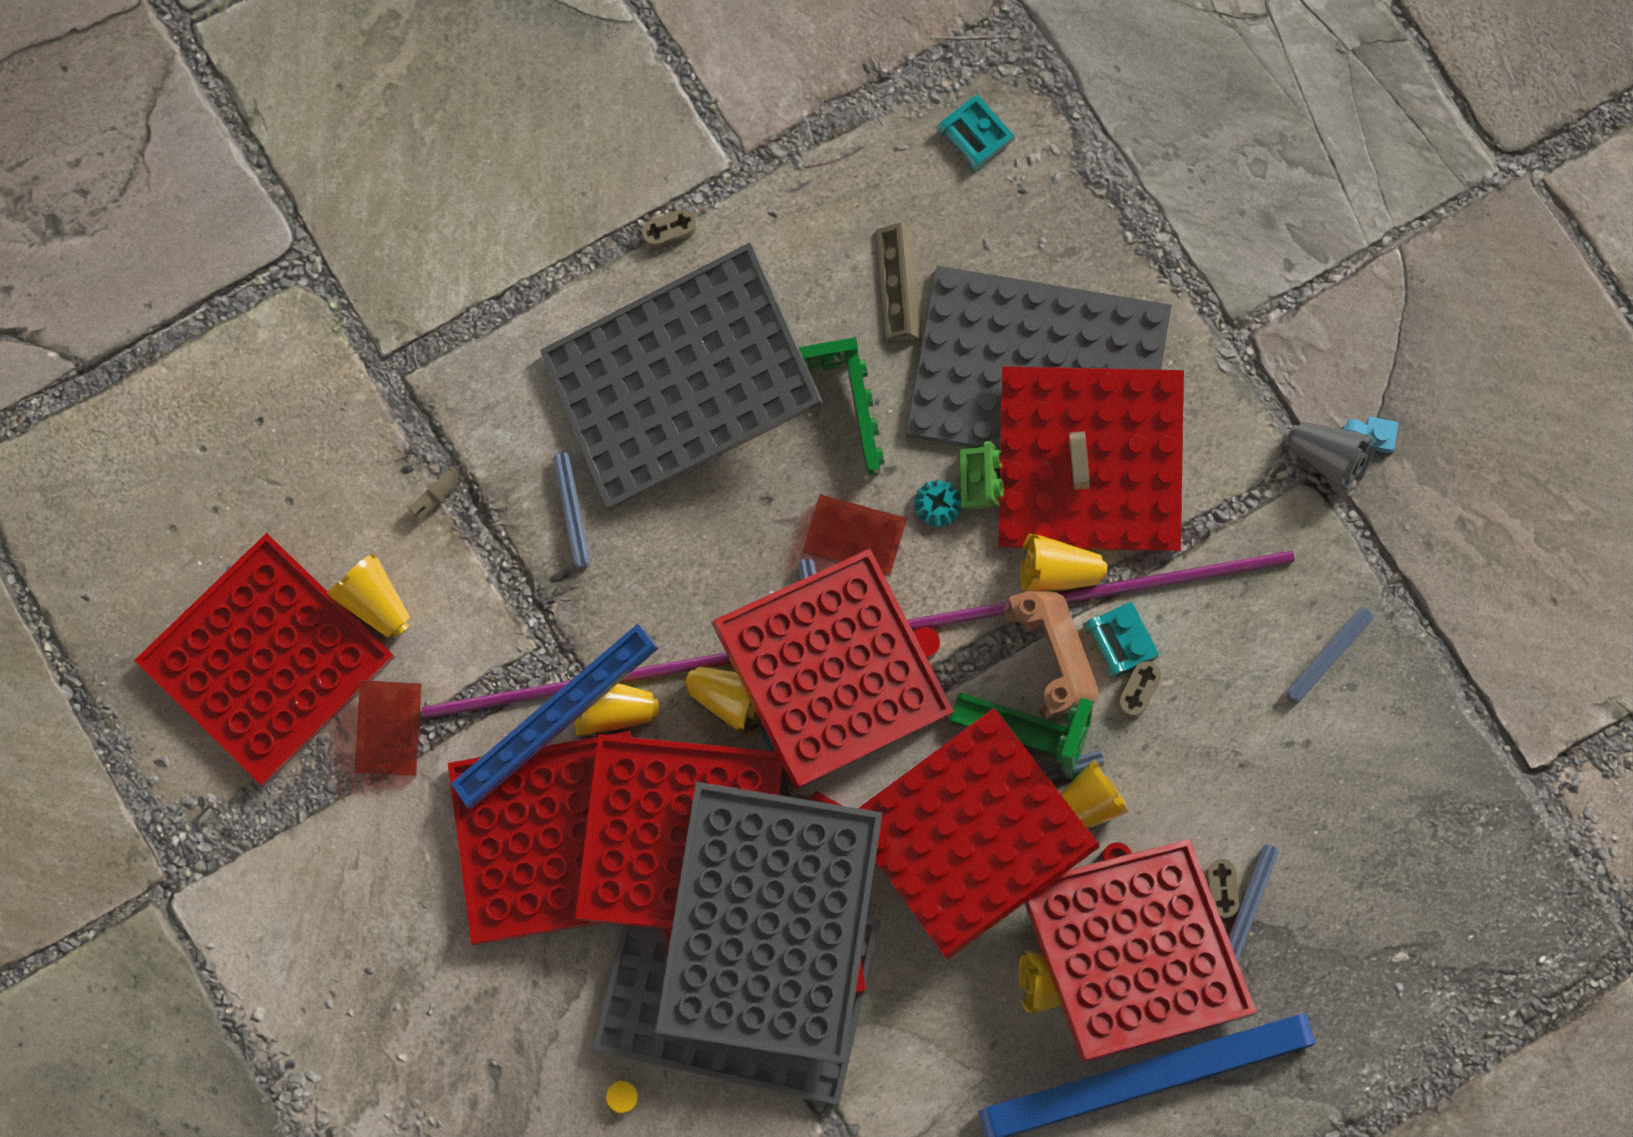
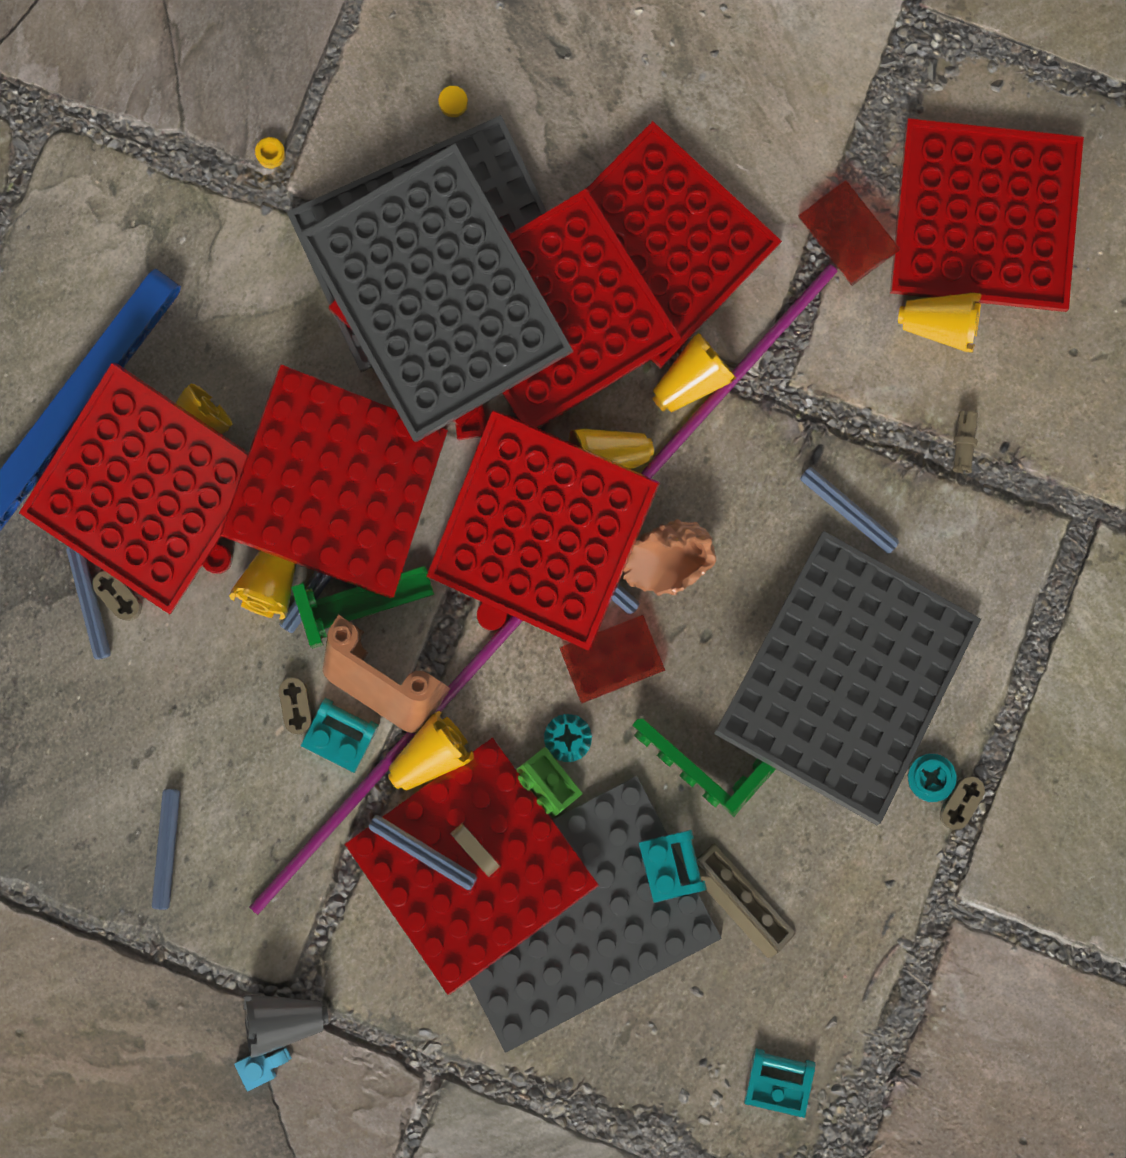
camera: 140 degrees right, 10 degrees up
(554, 716) = (724, 326): blue tile -> none
(664, 258) = (946, 777): none -> teal gear
(743, 571) = (670, 558): none -> nougat hair
(941, 347) = (662, 869): none -> teal plate
(1122, 491) = (422, 852): none -> sand blue axle

